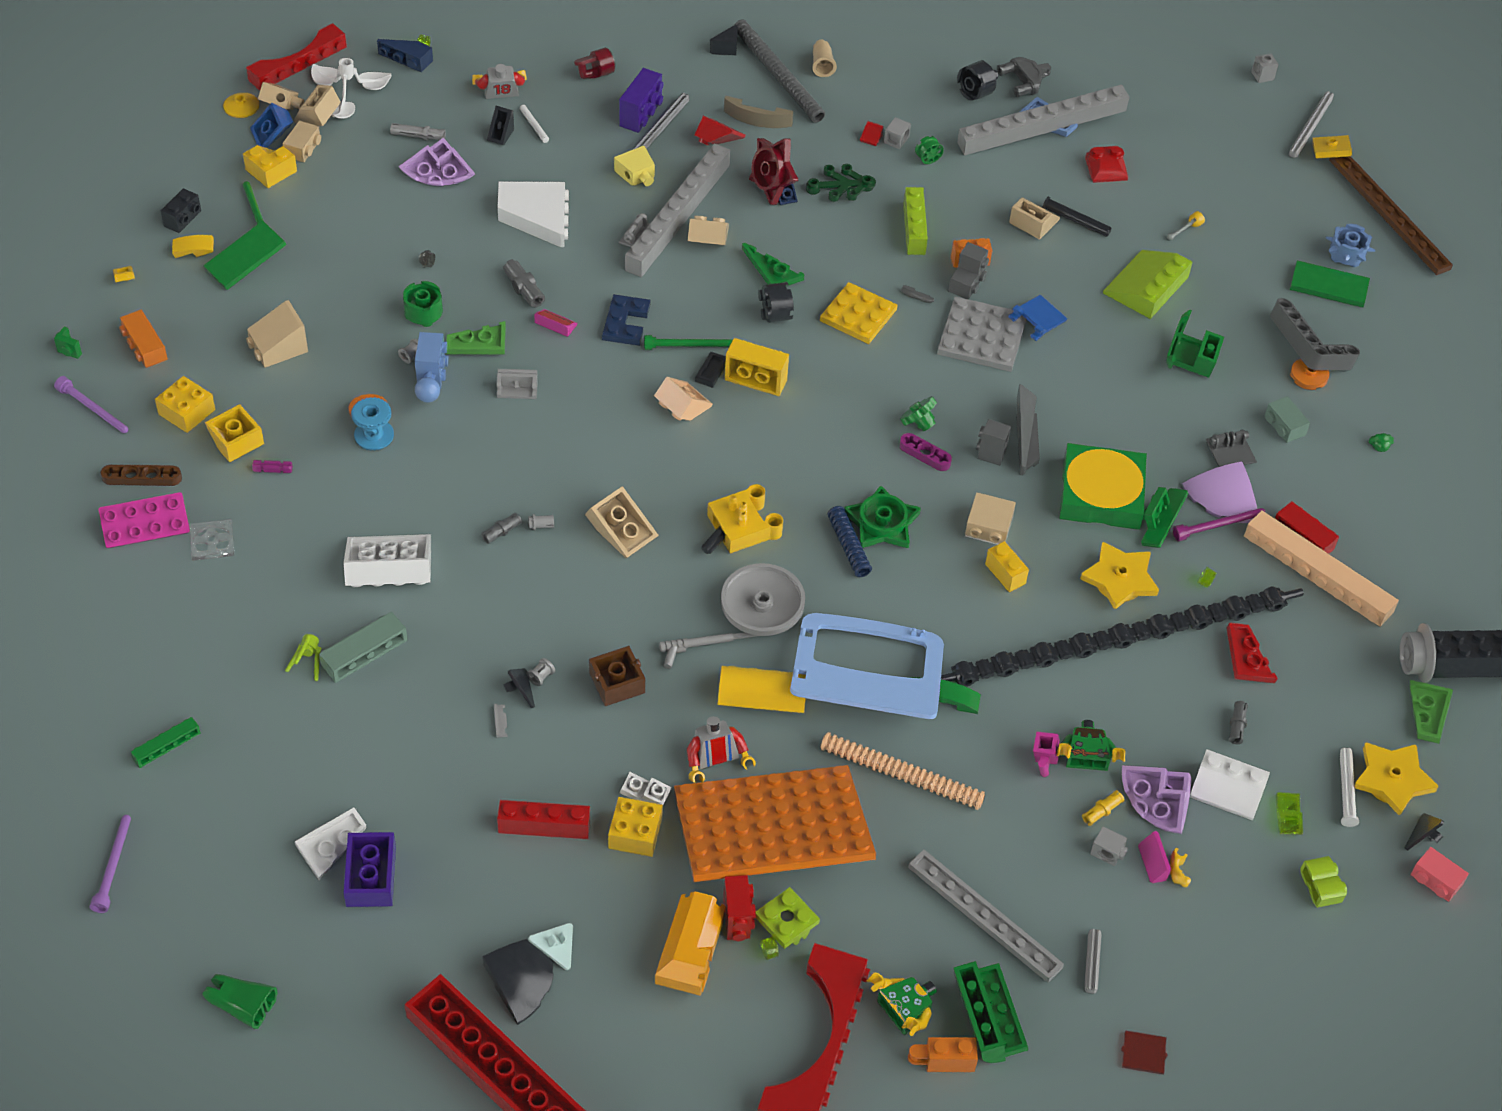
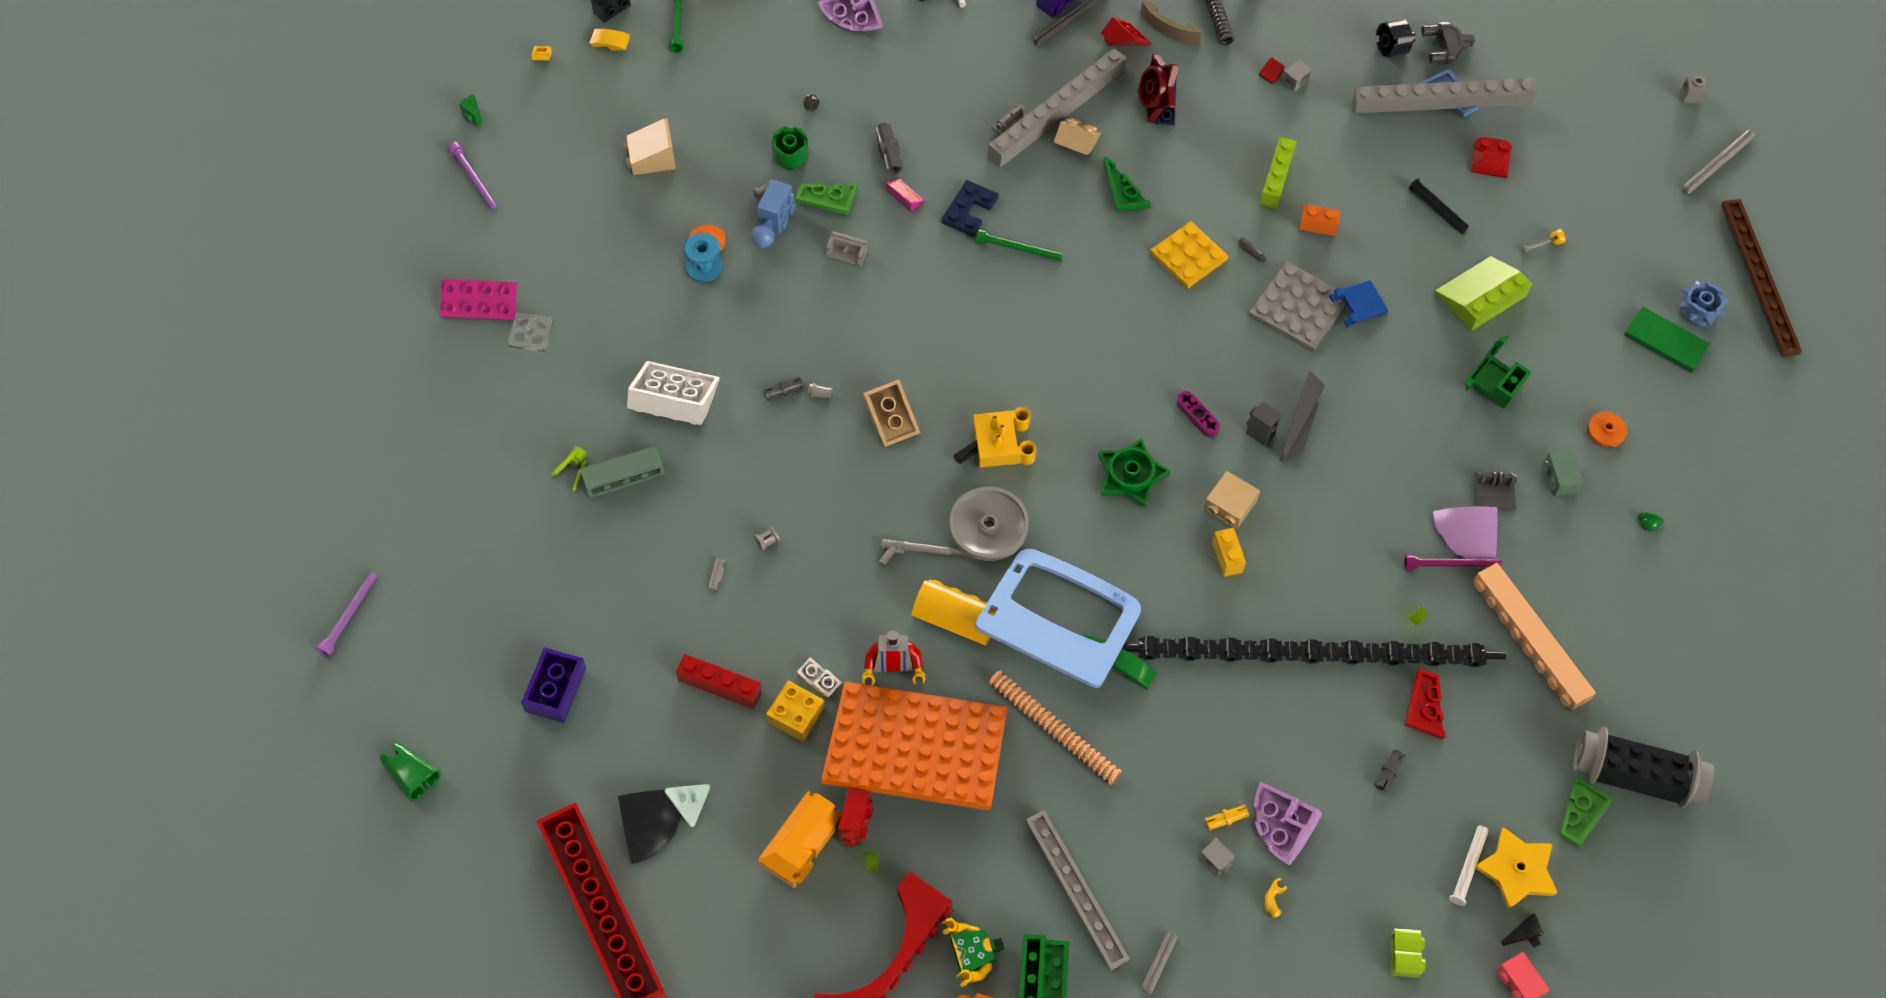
camera: 20 degrees right, 10 degrees up
(141, 473) = (490, 257): reddish brown beam -> none
(142, 338) = (535, 121): orange brick -> none
(165, 742) = (427, 514): green piece -> none
(185, 404) = (550, 195): yellow brick -> none
(235, 433) = (582, 235): yellow slope -> none
(244, 255) = (650, 60): green tile -> none
(272, 466) = (605, 274): magenta axle -> none
(329, 842) = (526, 648): white wing -> none
(520, 681) = (746, 545): black piece -> none
(535, 209) = (926, 75): white slope -> none
(617, 675) = (830, 562): reddish brown brick -> none
(635, 166) = (1034, 53): light yellow torso -> none
(681, 399) = (990, 302): light nougat slope -> none
(711, 369) = (1029, 278): black tile -> none
(756, 367) = (1069, 288): yellow brick -> none
(776, 302) = (1112, 226): black brick -> none
(787, 918) = (895, 839): lime piece -> none
(849, 541) = (1091, 486): dark blue piece -> none
(862, 183) = (1243, 119): dark green plant -> none
(920, 414) = (1205, 375): green plant -> none
(928, 150) = (1320, 101): green wheel -> none
(970, 271) = (1309, 240): dark grey brick -> none
(1032, 218) = (1394, 197): tan slope -> none
(1045, 751) = (1193, 746): dark pink brick -> none
(1089, 748) = (1235, 755): green torso -> none
(1103, 486) = (1353, 495): tile -> none
(1121, 575) = (1334, 590): yellow plate -> none
(1154, 858) = (1255, 881): dark pink slope -> none
(1162, 514) = (1398, 539): green bracket -> none
(1229, 784) = (1354, 830): white slope -> none
(1288, 813) = (1402, 875): clear neon green slope -> none
(1306, 342) = (1613, 397): dark grey beam -> none
(1307, 527) = (1536, 592): red brick -> none
(1332, 146) = (1728, 192): yellow plate -> none

